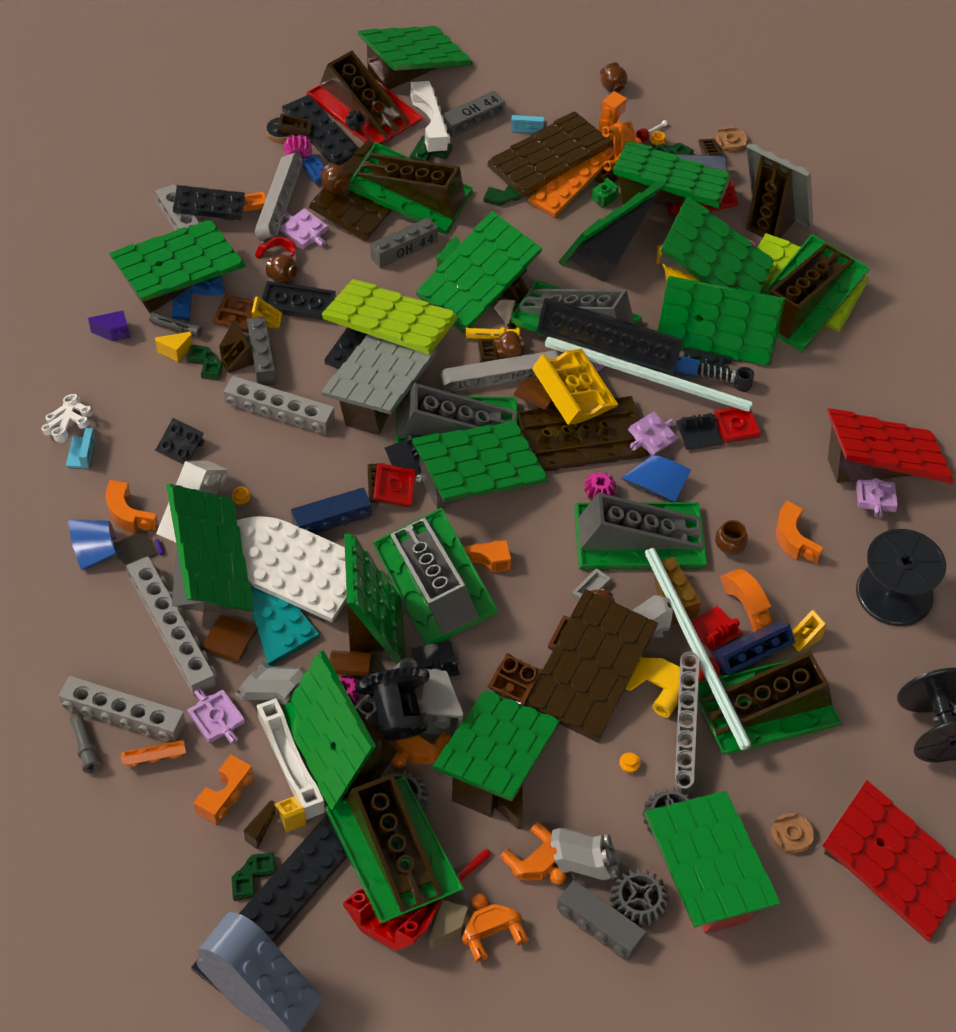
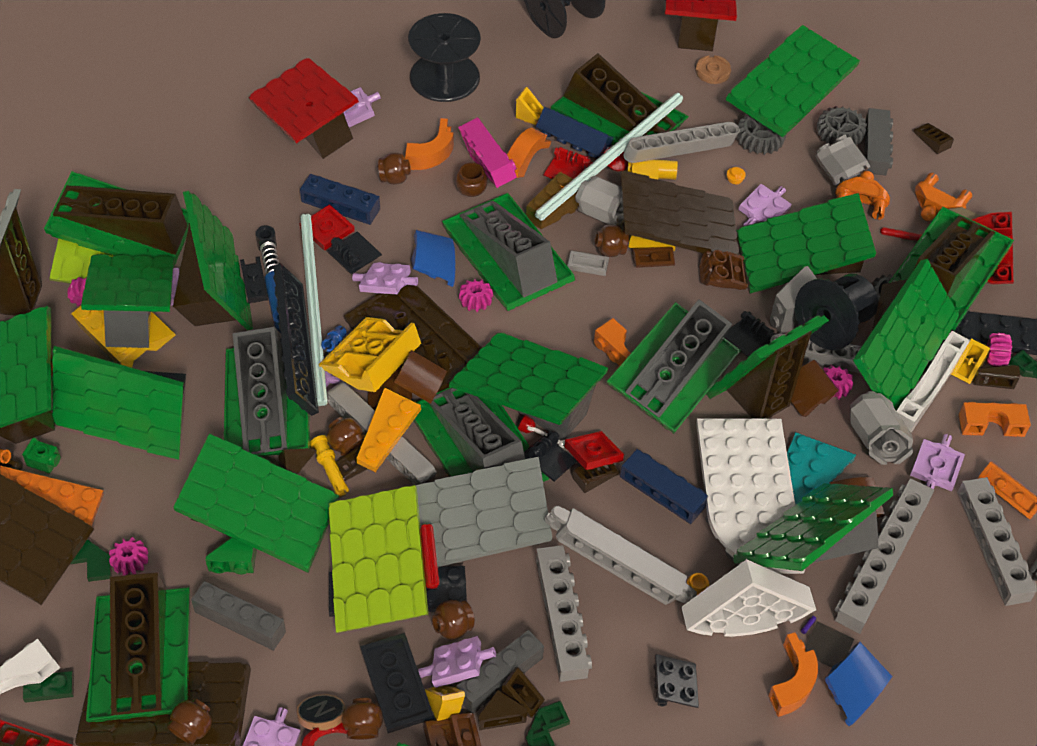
camera: 120 degrees left, 0 degrees up
(283, 328) = (456, 662): none -> lavender plate
(284, 437) = (619, 556): none -> light grey hinge
(284, 839) = (1000, 349): none -> dark pink gear
(305, 254) = (320, 711): none -> tile
(317, 341) = (453, 619): none -> reddish brown piece
(366, 336) = (429, 556): none -> red axle
(489, 204) = (128, 556): none -> dark pink gear
(498, 368) = (387, 426): none -> light orange wing
(531, 406) = (420, 376): none -> reddish brown slope
(571, 995) = (938, 144): none -> dark brown slope
(575, 763) = (764, 205): none -> lavender plate
(607, 375) = (333, 338): none -> blue pin
(748, 552) = (487, 153): none -> dark pink wedge
(764, 443) = (345, 199): none -> dark blue brick
(777, 488) = (394, 168): none -> reddish brown piece

